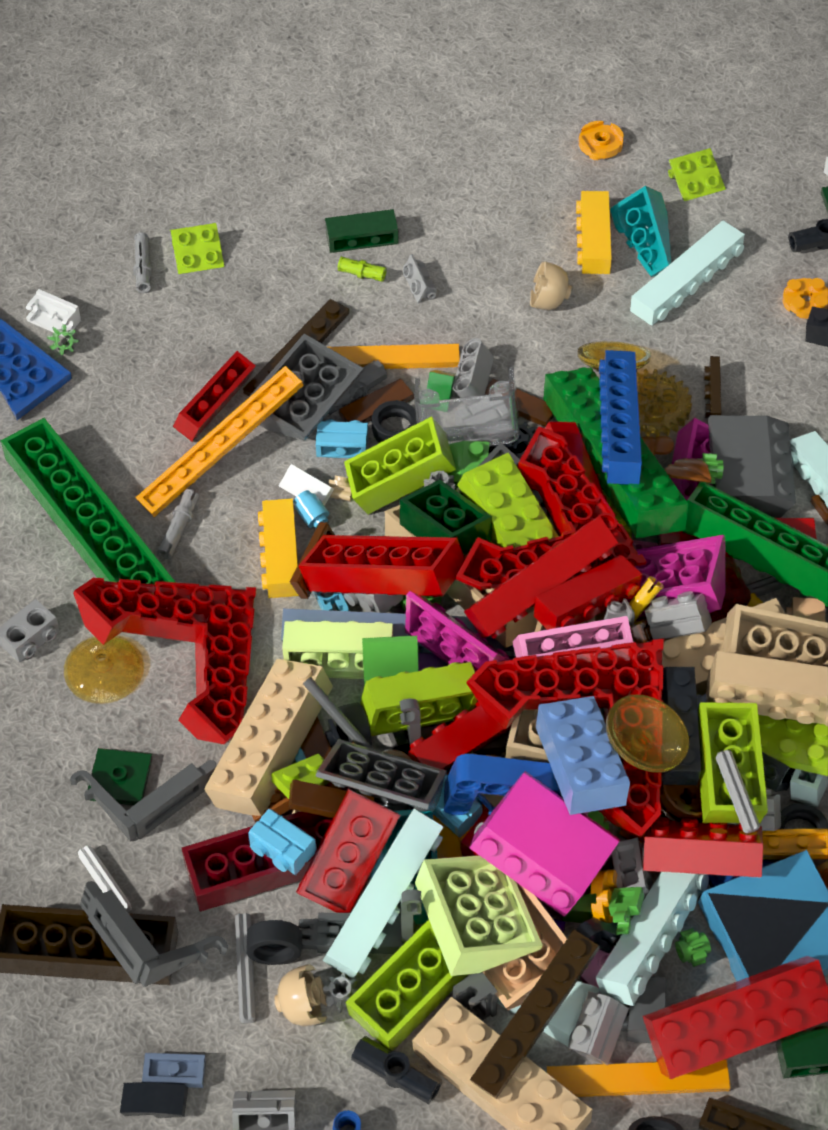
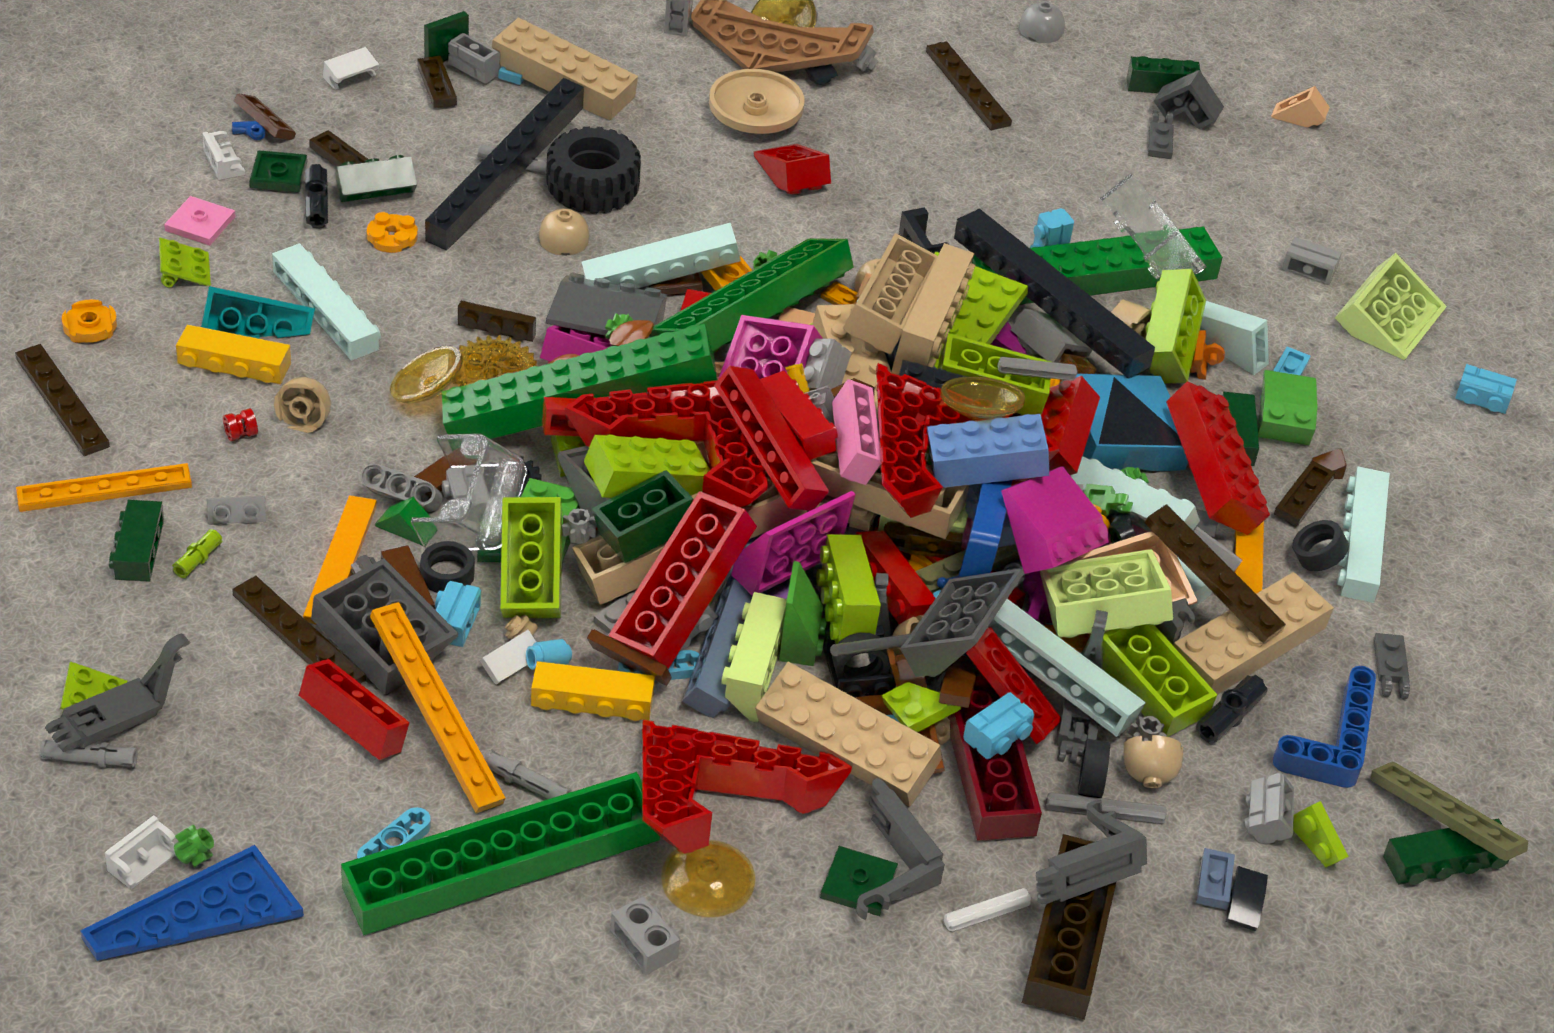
camera: 85 degrees left, 10 degrees down
(104, 464) = (399, 829): none -> medium azure beam
(172, 257) = (120, 706): none -> dark grey hinge
(420, 200) = (103, 487): none -> light orange tile
(506, 150) = (62, 400): none -> dark brown plate
(513, 256) = (240, 424): none -> red wheel
(620, 418) = (559, 355): blue brick -> none
(760, 173) = (200, 220): none -> bright pink plate

